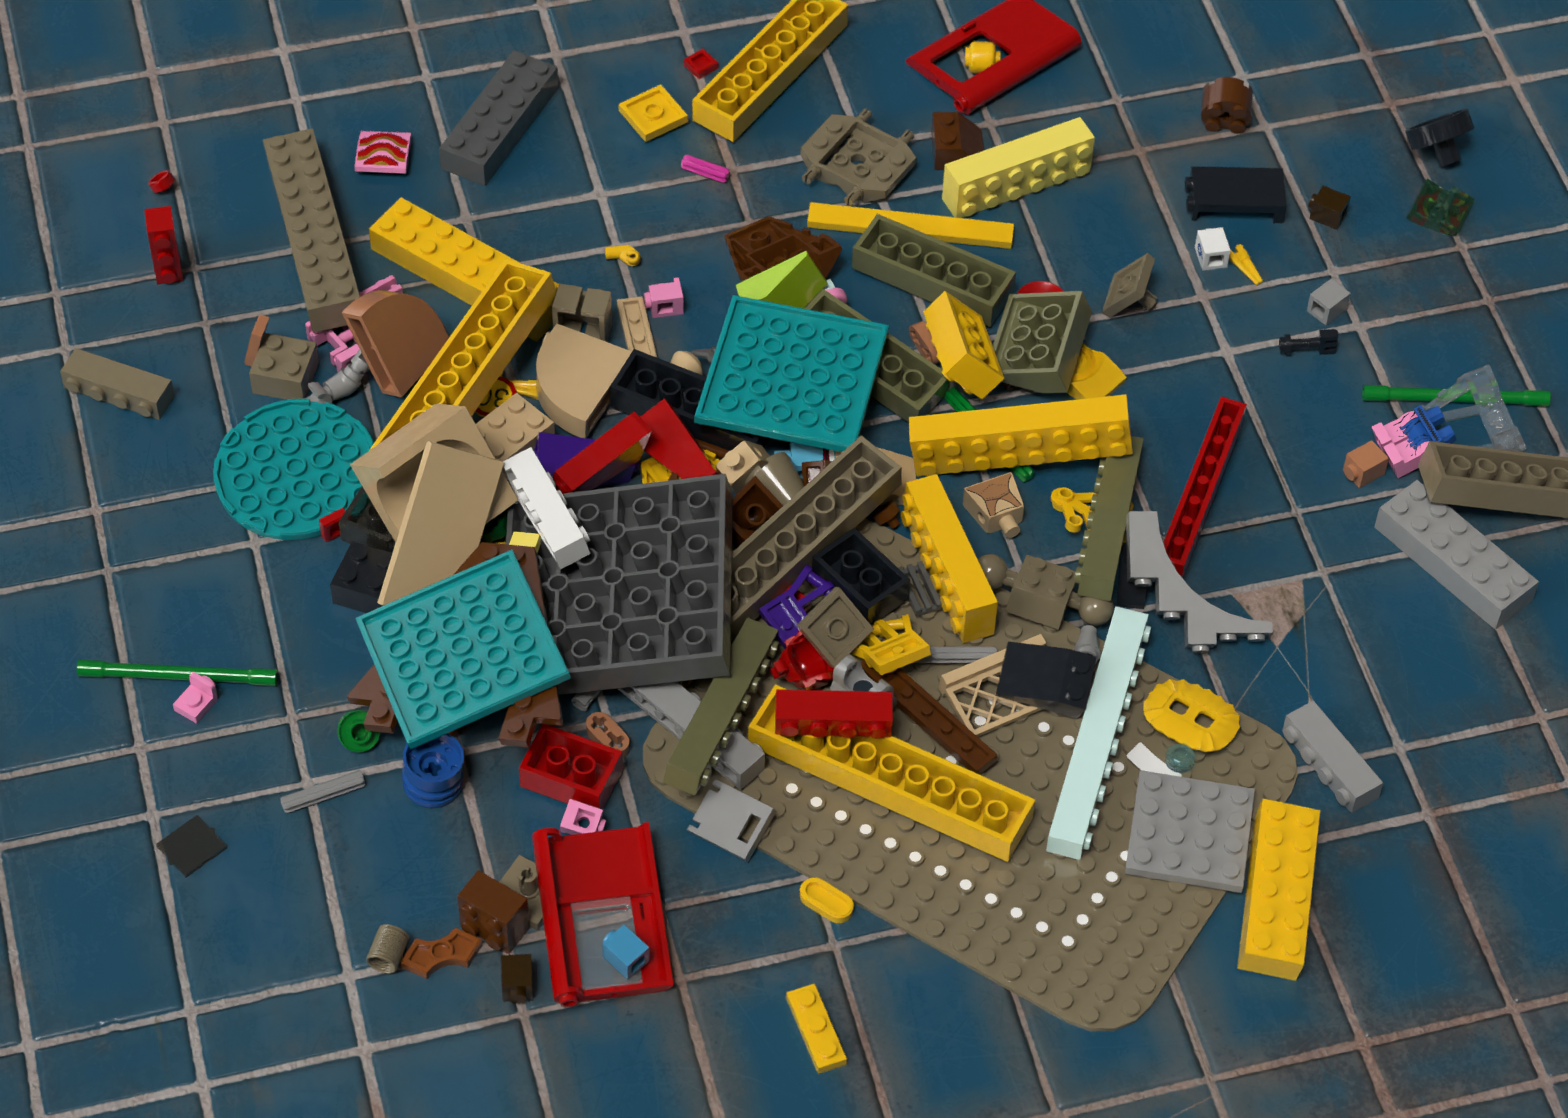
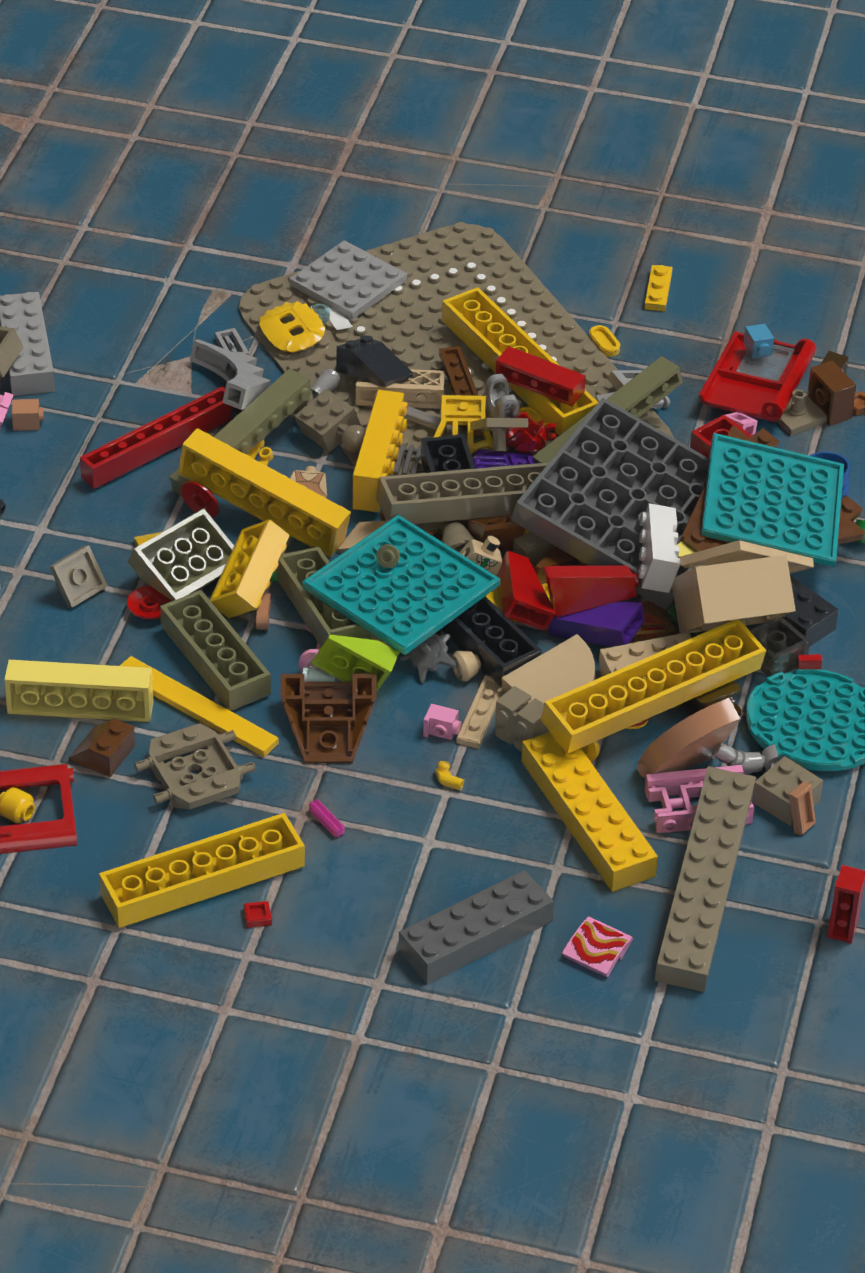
camera: 150 degrees left, 10 degrees down
(161, 181) = (813, 1001): red tile -> none
(653, 113) = (336, 880): yellow plate -> none
(820, 372) = (388, 556): none -> olive plate
(1097, 734) = (381, 324): light aqua brick -> none
(1239, 678) = (218, 337): none -> light grey tile
(1279, 890) = (322, 229): yellow brick -> none
(1332, 757) = (221, 284): light grey brick -> none

